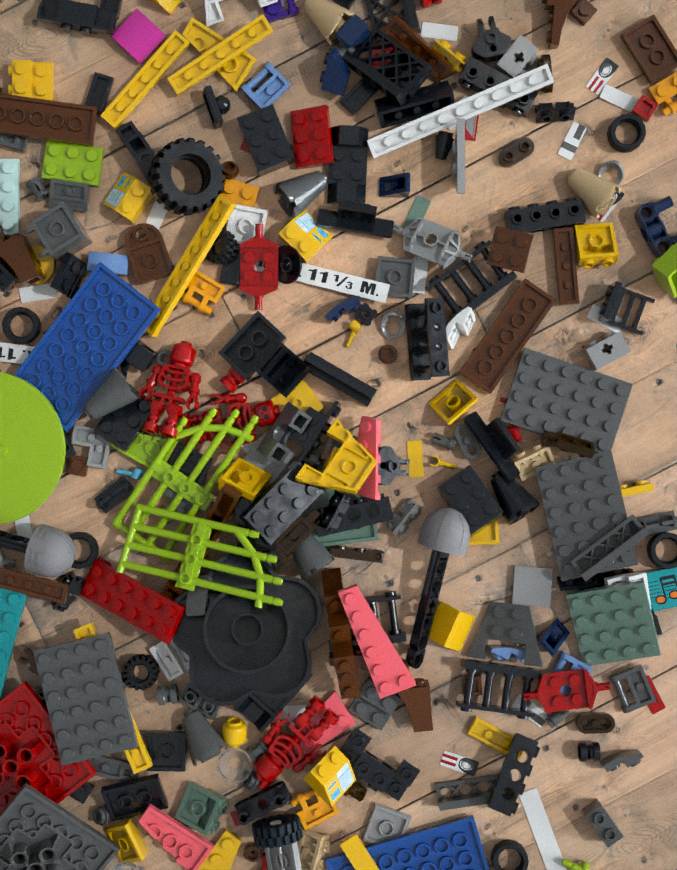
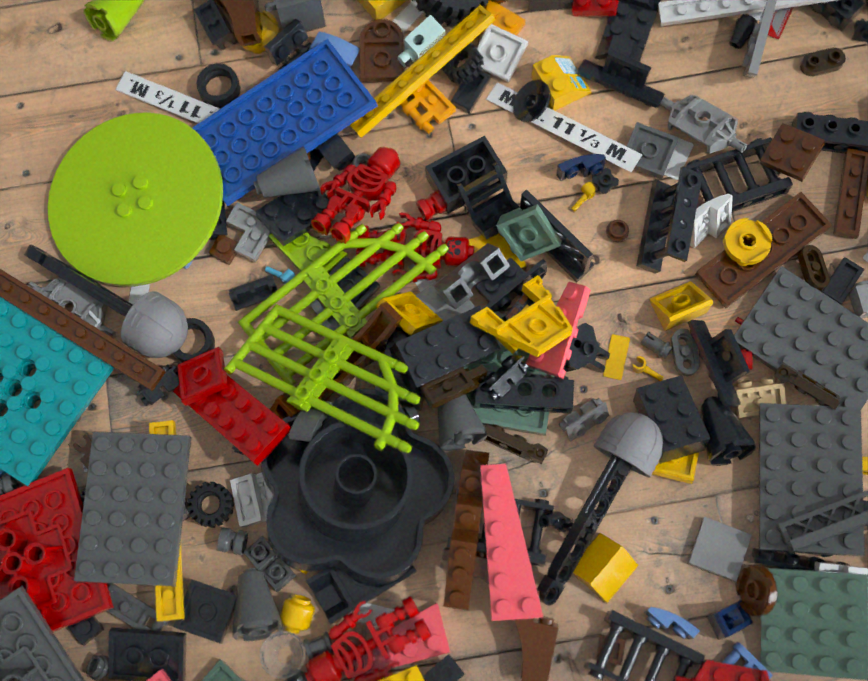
camera: 20 degrees right, 15 degrees down
(37, 293) = (248, 60): white sticker -> none
(99, 579) = (202, 376): none -> red tile
(182, 233) = (421, 40): none -> light aqua torso
(257, 282) = (500, 78): red plate -> none
(300, 191) = (568, 32): dark grey cone -> none
(317, 386) = (528, 232): none -> sand green plate
(371, 707) = (480, 636): dark grey plate -> none
(384, 320) = (637, 189): light grey piece -> none
(395, 186) = (678, 57): dark blue slope -> none
(405, 603) = (556, 520): none -> black arm
(418, 210) = (698, 88): sand green sticker -> none
(491, 326) = (745, 254): none -> yellow plate
(508, 624) = (678, 585): dark grey wing -> none
(550, 340) = (813, 267): none -> dark brown plate
(566, 611) = (756, 590): none -> reddish brown tile
(574, 344) = (843, 280): none -> black tile

